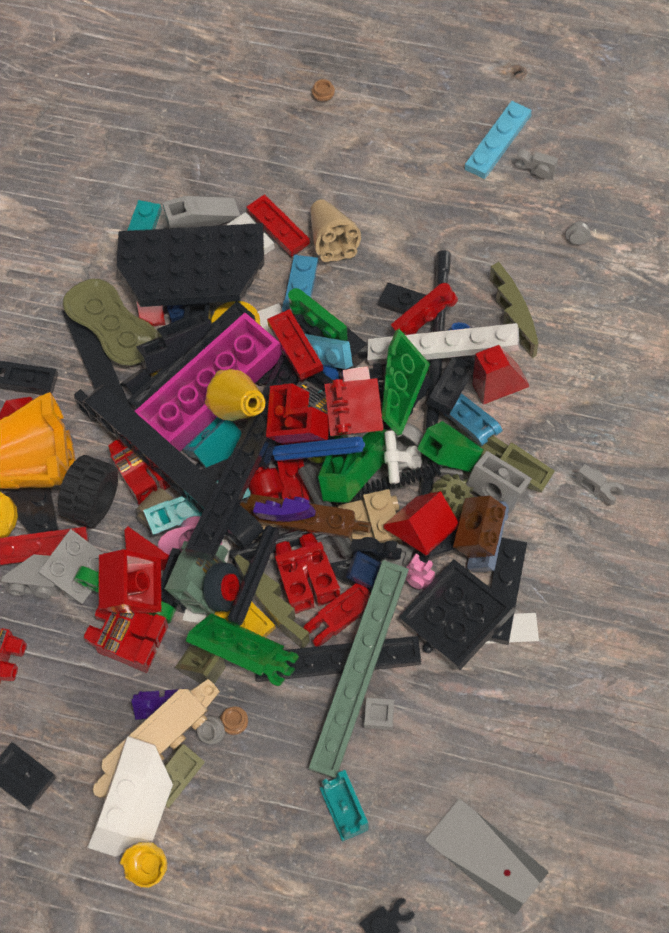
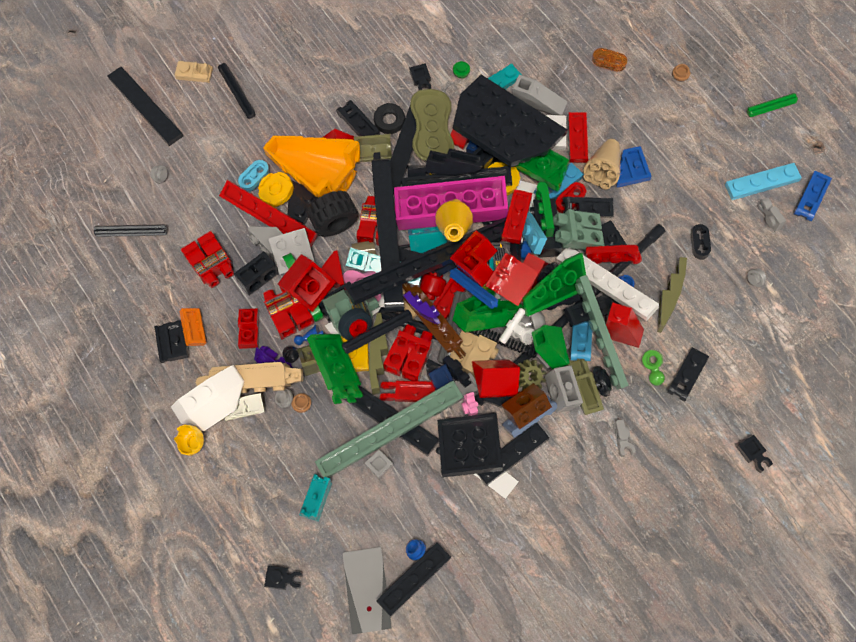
camera: 40 degrees right, 5 degrees up
(32, 739) = (192, 327): none -> orange plate
(50, 281) = (420, 76): none -> black plate
(54, 336) = (389, 108): none -> black tyre
(55, 622) = (256, 273): none -> black brick
(65, 387) = (373, 144): none -> olive hinge
(88, 244) = (461, 69): none -> green plate
(98, 690) = (248, 328): none -> red slope
(174, 678) = (293, 354): none -> black hinge
(178, 643) = (298, 340): none -> blue piece
(239, 126) = (610, 59): none -> clear orange plate
(277, 278) = (546, 169): none -> green wing
(327, 292) = (569, 192): none -> red plate
(354, 285) = (600, 206): none -> black plate
(364, 213) = (633, 167): none -> blue wing
(368, 315) = (577, 229): none -> sand green hips
(440, 61) = (772, 105): none -> green axle
(486, 395) = (603, 339): none -> sand green plate
(493, 239) = (704, 241): none -> black beam
(500, 768) = (415, 549): none -> blue plate
(526, 800) = (413, 579): none -> black plate
(528, 444) = (602, 381): none -> black gear
(558, 119) = (813, 195): none -> blue plate
(572, 400) = (656, 377): none -> bright green plate
(600, 374) = (688, 373): none -> black plate

